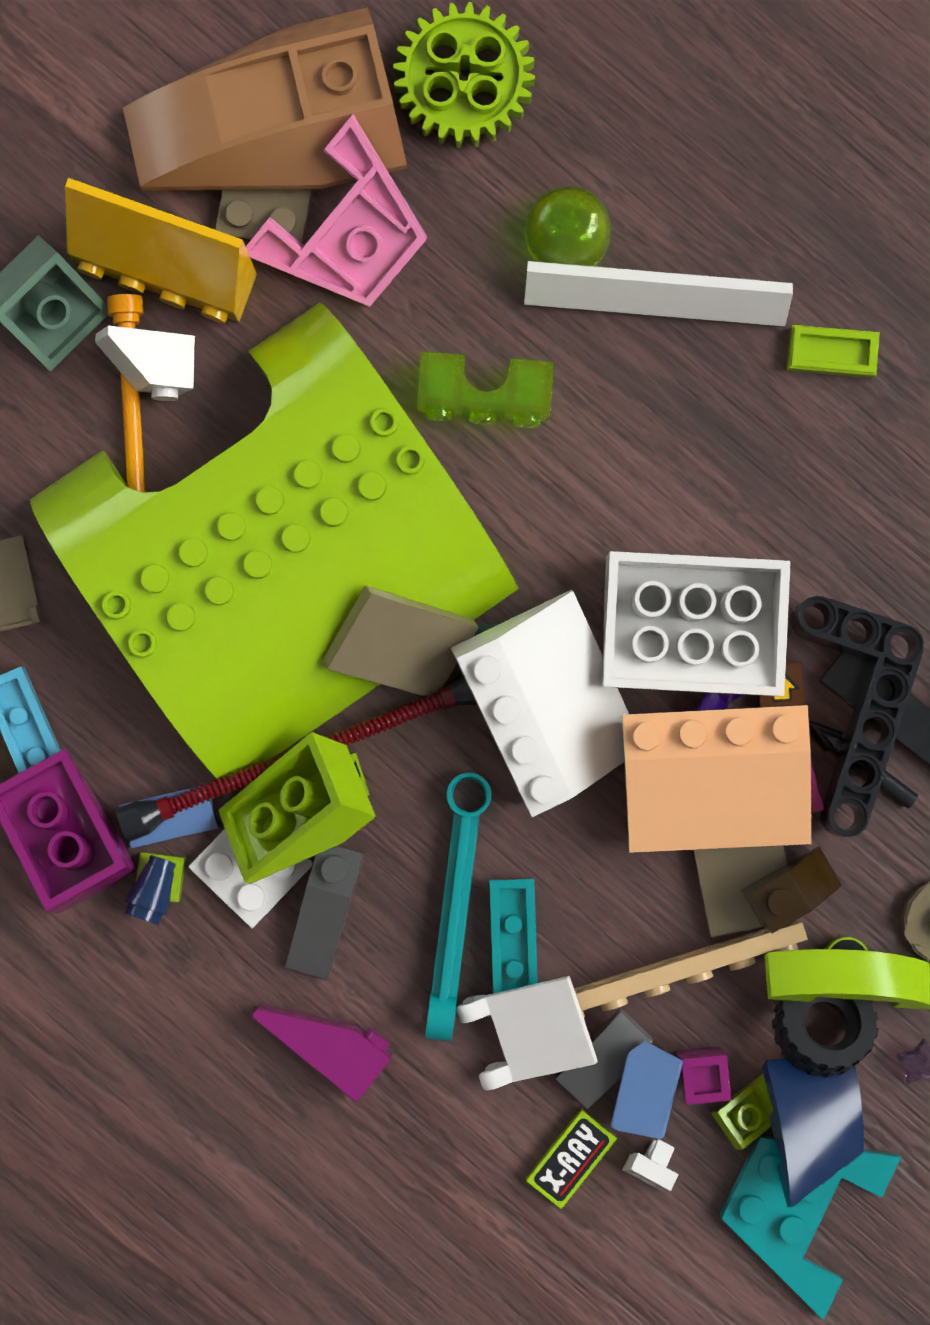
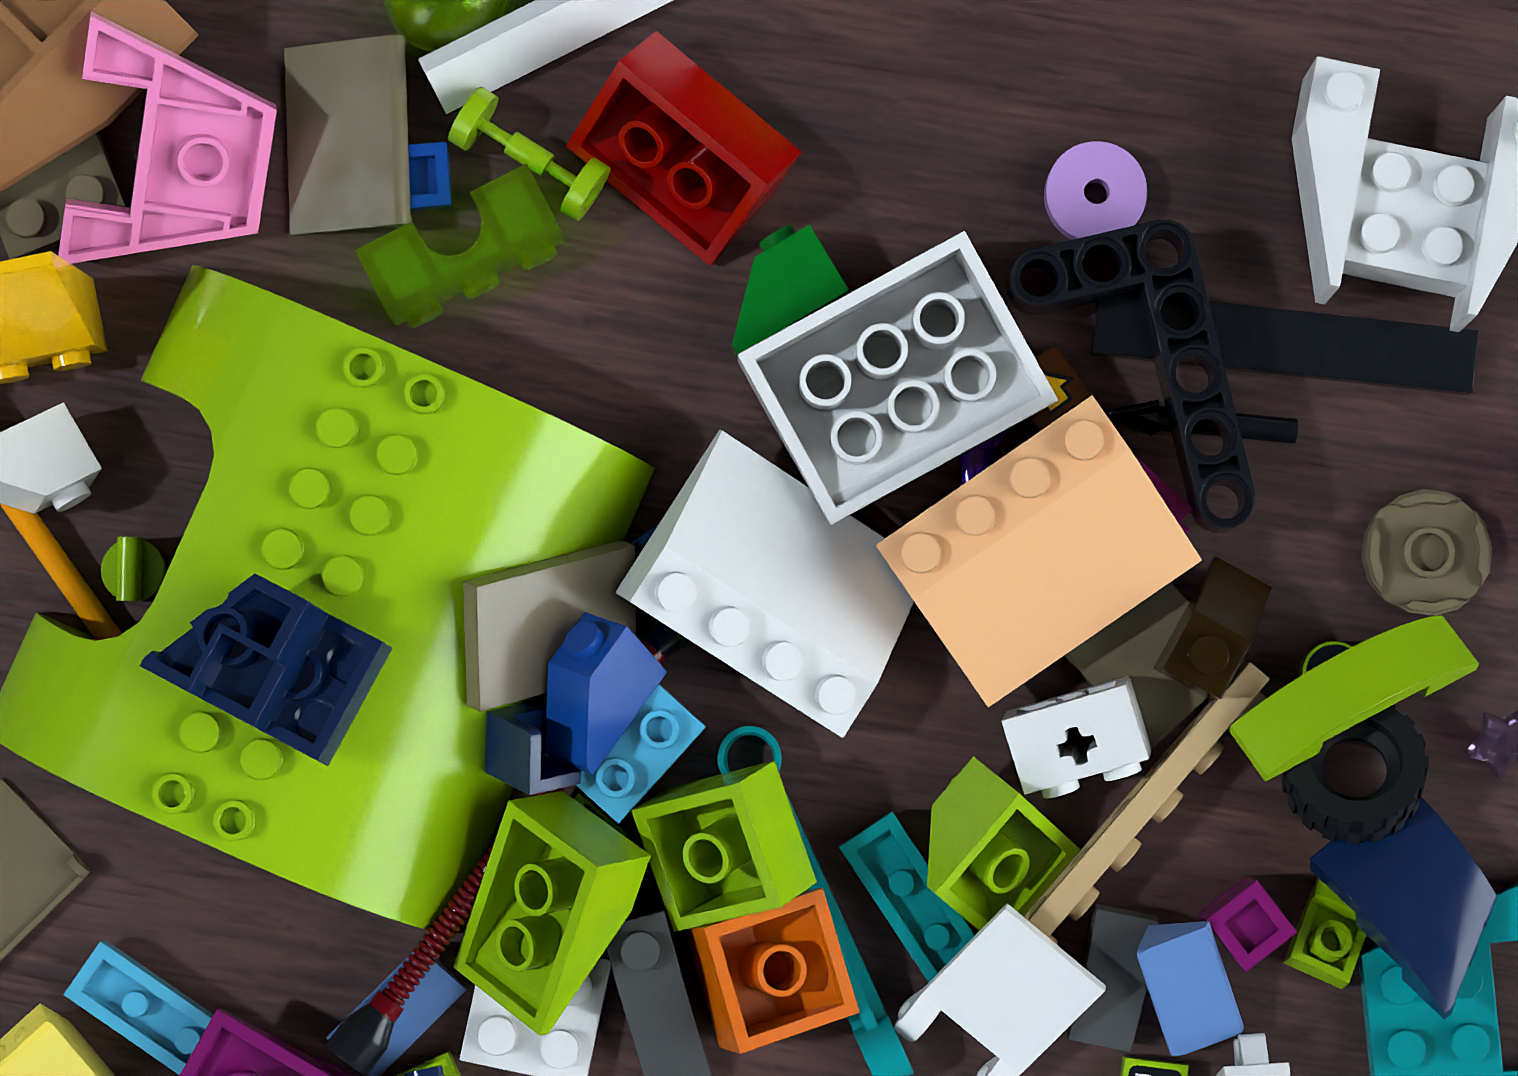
camera: 30 degrees left, 0 degrees up
(174, 459) = (133, 569): none -> lime plate
(224, 567) = (276, 666): none -> dark blue slope
(338, 707) = (518, 750): none -> dark blue panel
(403, 698) = (596, 690): none -> blue slope
(404, 928) = (772, 973): none -> orange slope
(405, 751) = (642, 754): none -> medium azure brick
(422, 838) = (724, 846): none -> lime brick
(458, 281) = (347, 135): none -> dark tan piece
(484, 331) = (430, 177): none -> blue plate
(538, 318) = (475, 120): none -> lime wheel
(580, 936) = (991, 847): none -> lime slope
(651, 409) = (683, 147): none -> red slope
(663, 528) = (786, 285): none -> green slope
(696, 896) = (1103, 710): none -> white brick
(894, 572) = (1099, 164): none -> lavender piece

